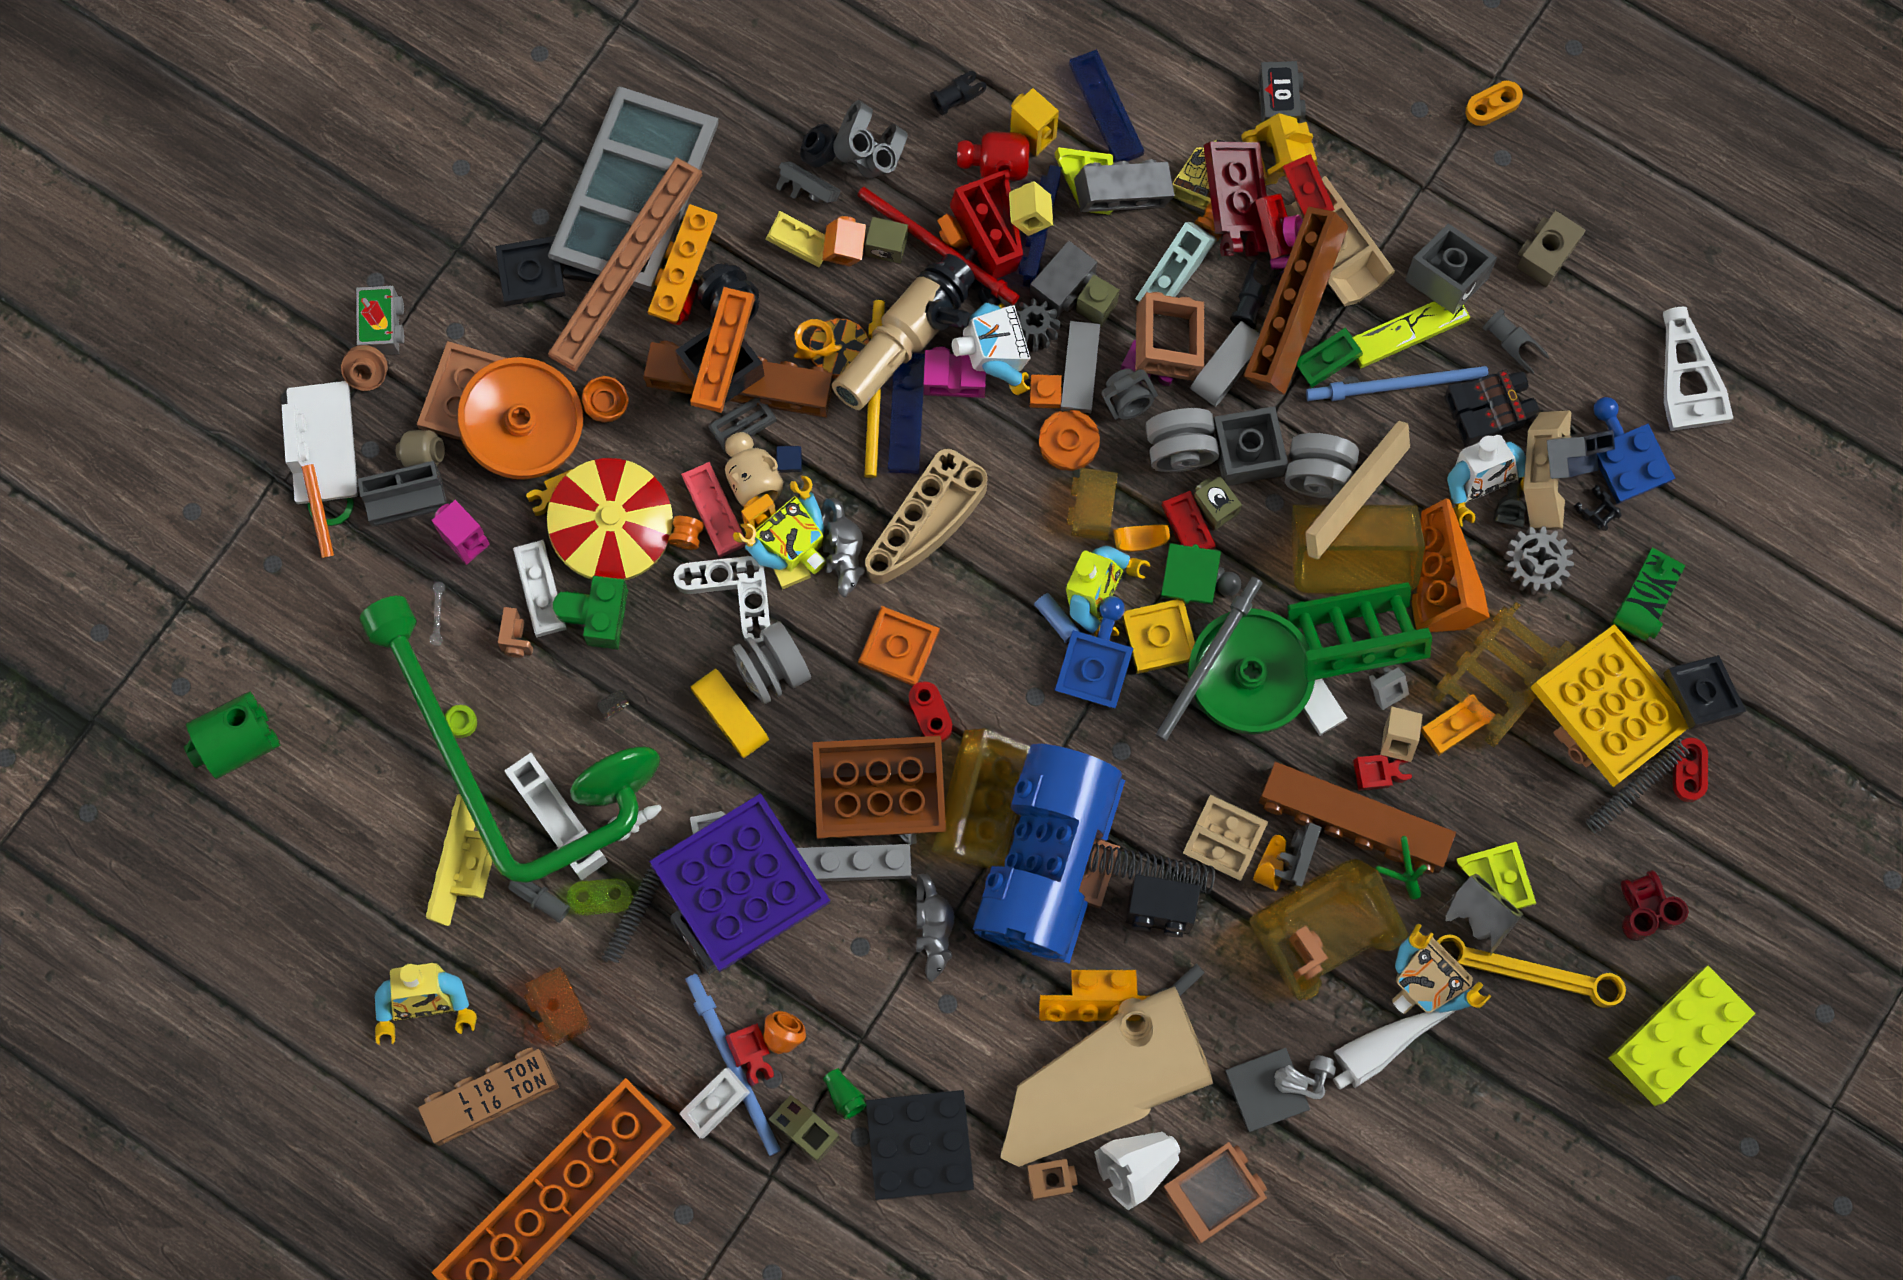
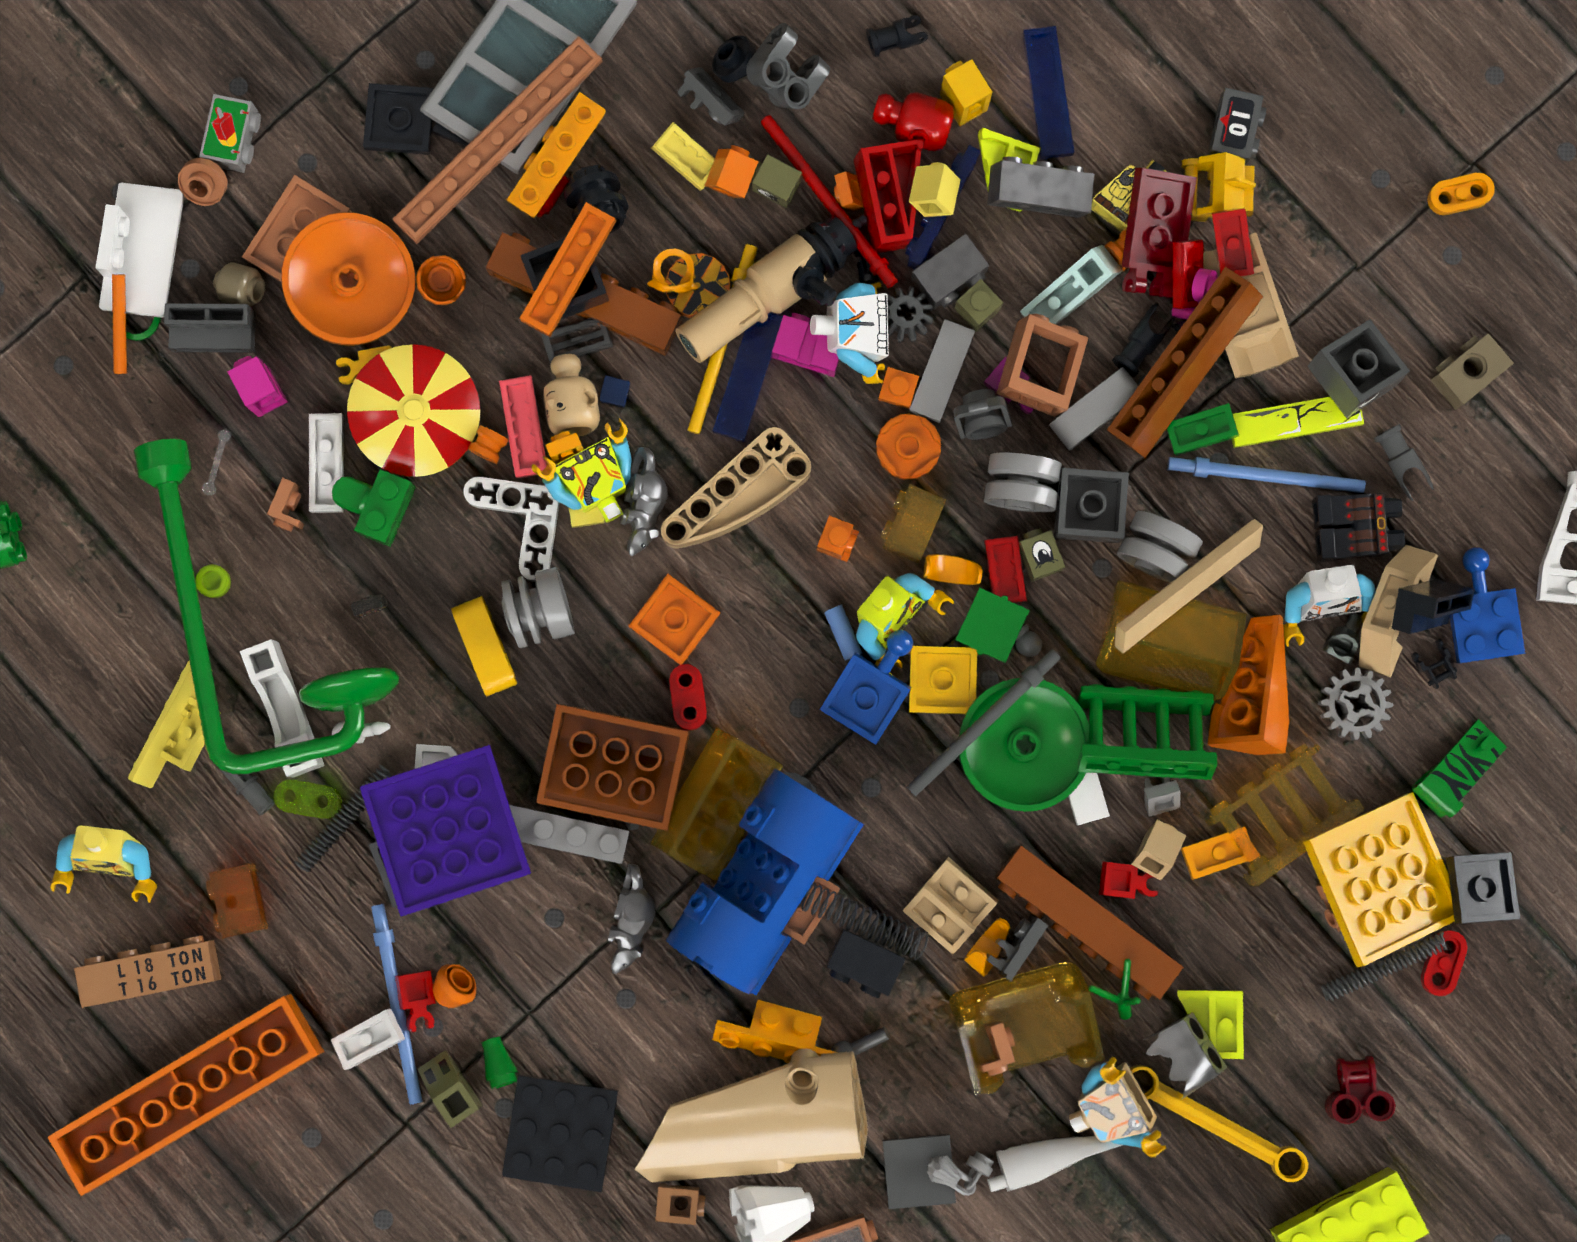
camera: 15 degrees right, 10 degrees up
(1028, 535) = (837, 539): none -> orange brick

